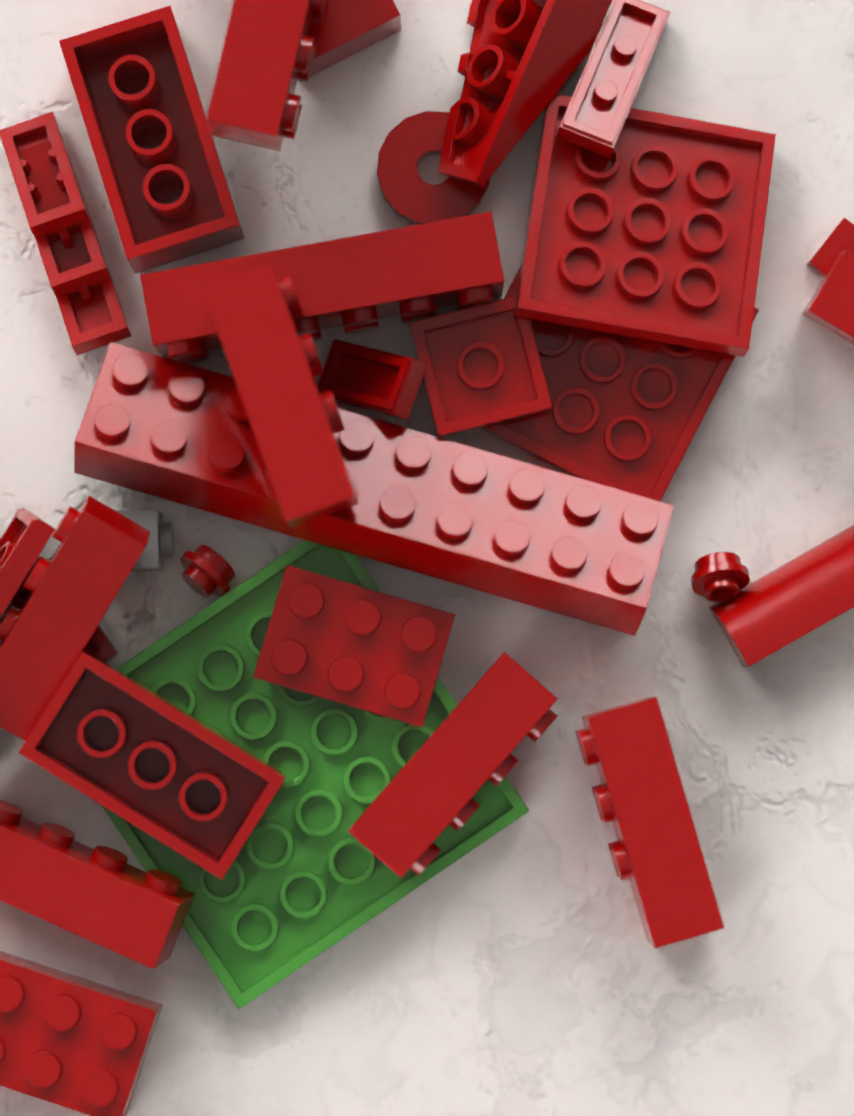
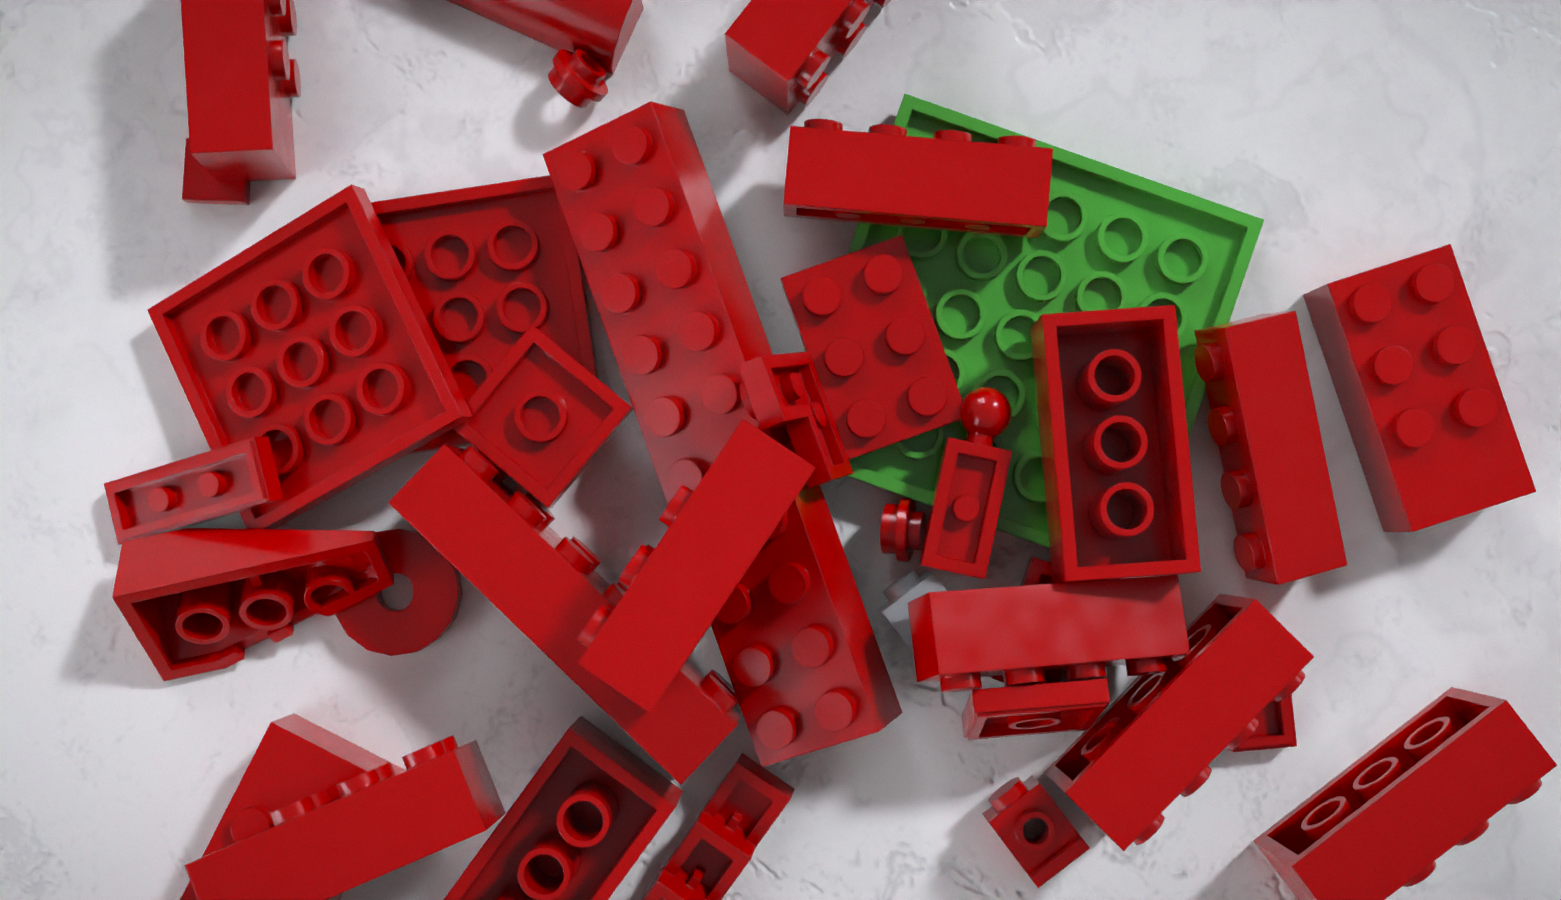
camera: 125 degrees left, 0 degrees up
(199, 639) = (969, 489): none -> red plate
(357, 555) = (789, 393): none -> red plate
(372, 379) = (621, 502): red tile -> none

